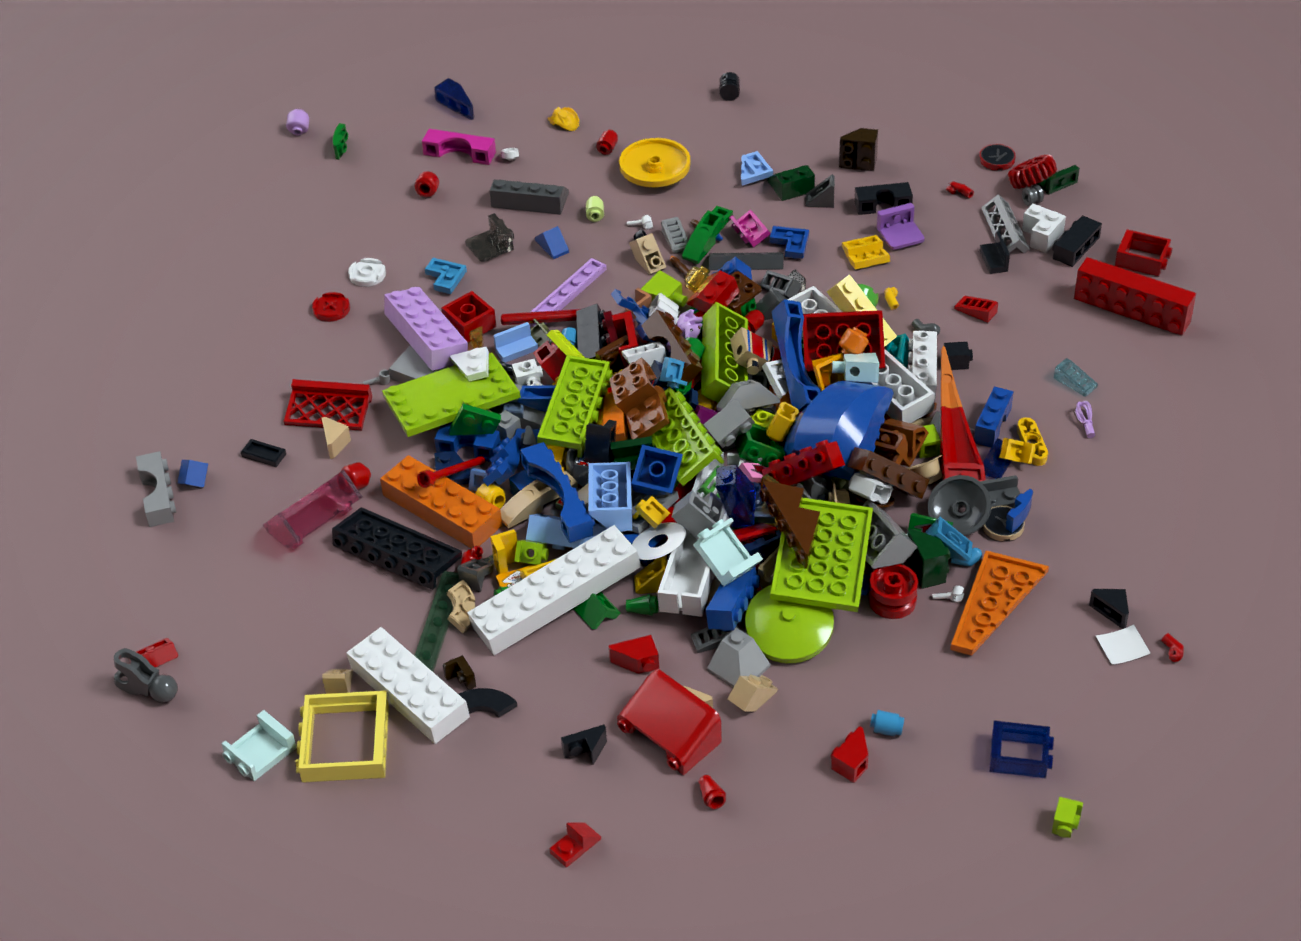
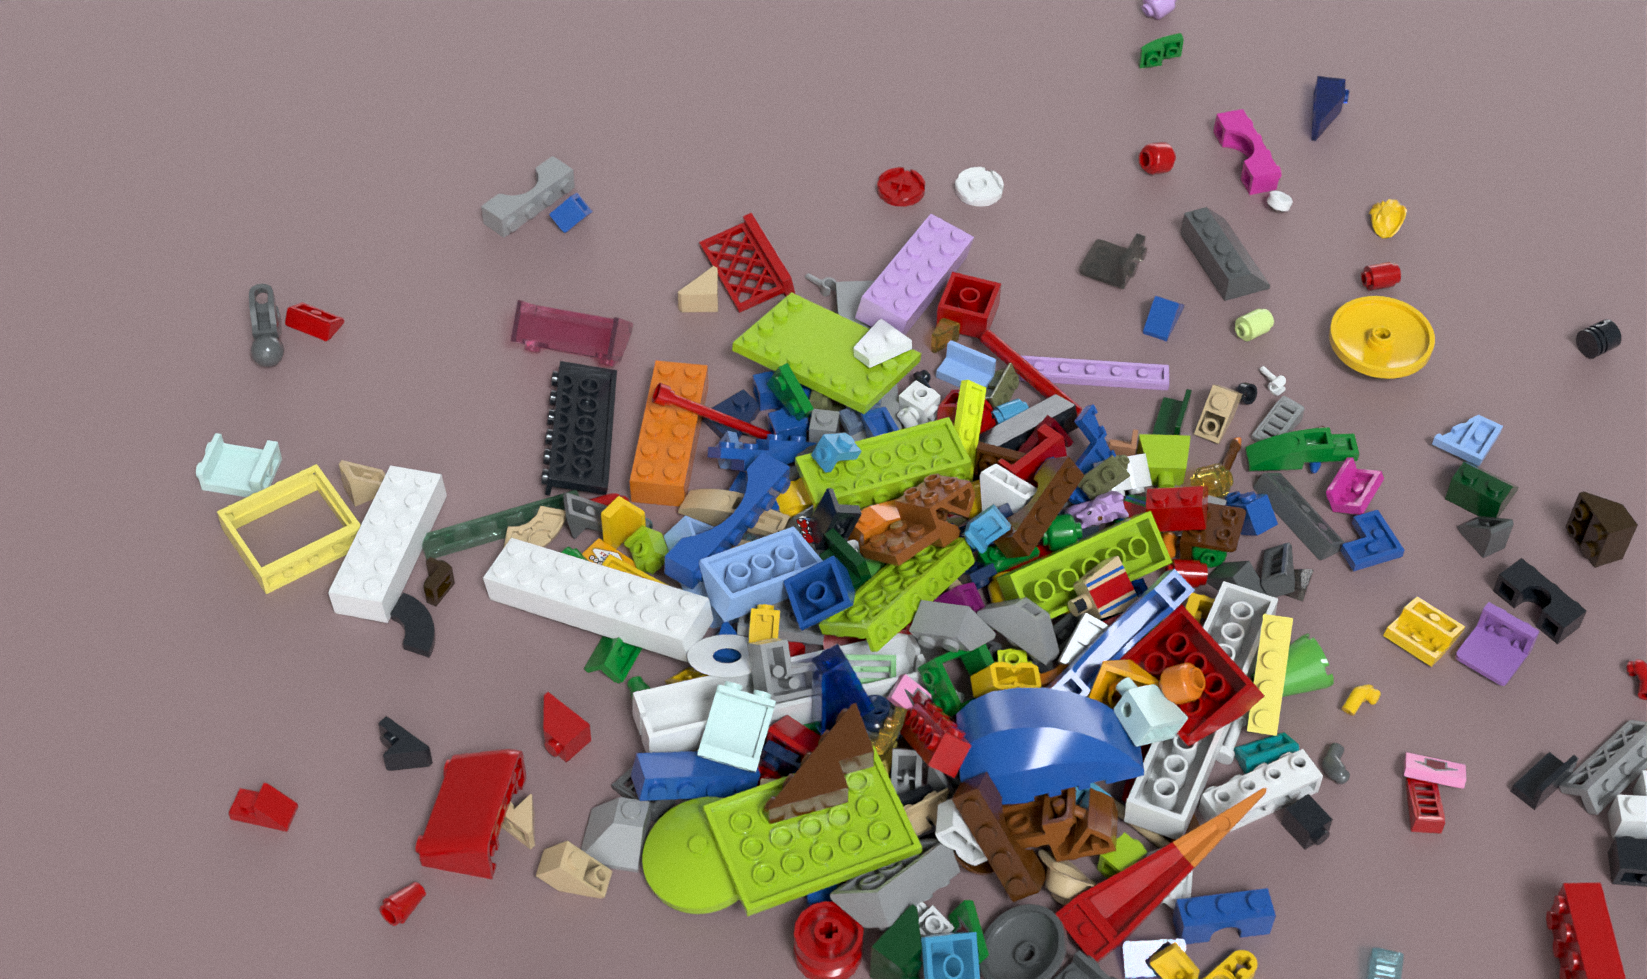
camera: 55 degrees right, 5 degrees up
(263, 453) = (644, 252): black tile -> none
(358, 474) = (656, 341): red head -> none
(448, 274) = (1032, 254): dark azure plate -> none
(492, 494) = (708, 472): yellow head -> none
(553, 414) = (833, 449): none -> dark azure bracket
(634, 273) = (1172, 415): none -> dark green panel
(674, 304) = (1105, 476): none -> olive hinge
(959, 292) = (1435, 770): none -> bright pink tile

